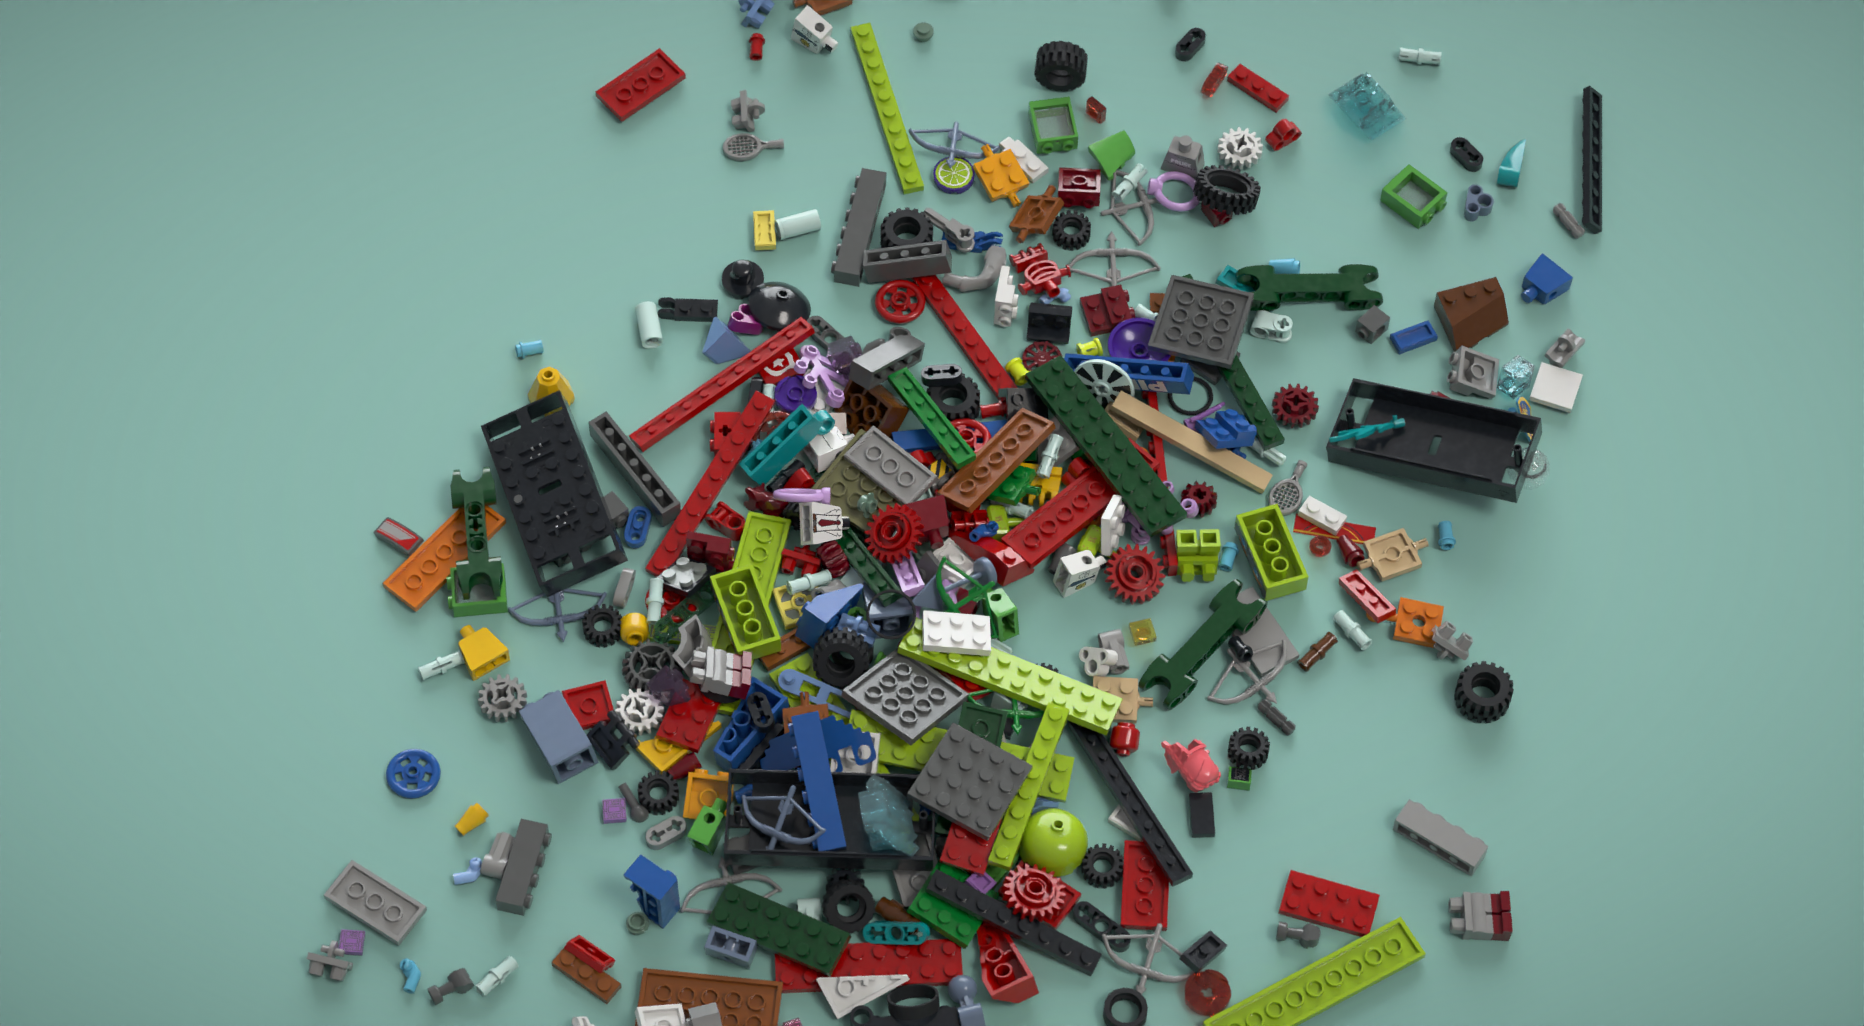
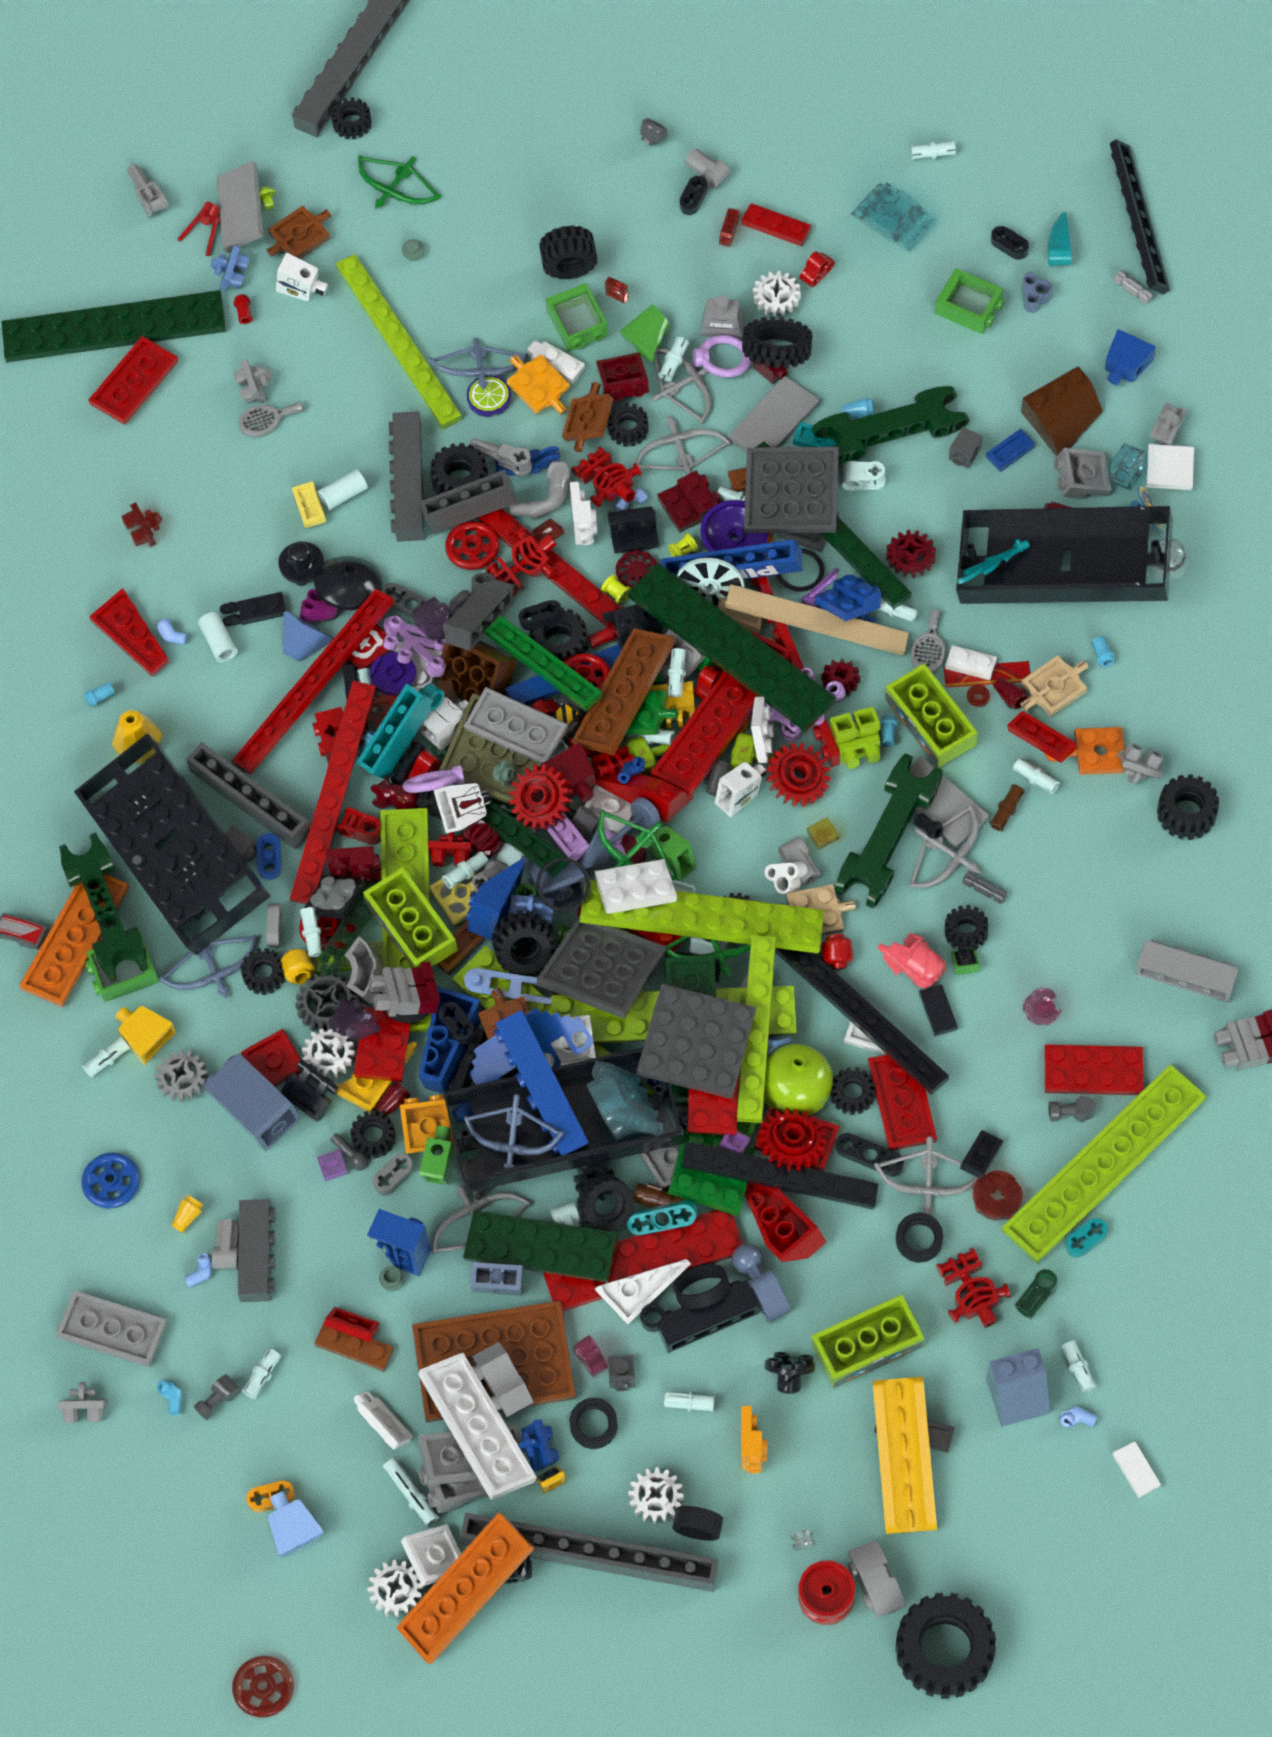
camera: 10 degrees left, 5 degrees up
(352, 942) = (99, 1377): medium lavender tile -> none
(572, 301) = (127, 629): none -> red wing
(606, 311) = (168, 633): none -> light blue arm
(607, 204) = (145, 524): none -> clear red hips
(637, 34) = (113, 326): none -> dark green plate
(948, 310) = (541, 548): none -> red piece
(972, 306) = (548, 527): none -> clear red tile
(1207, 255) = (775, 416): none -> light grey tile
(1213, 27) = (711, 170): none -> light grey piece
(1295, 835) = (1040, 1007): none -> clear pink piece

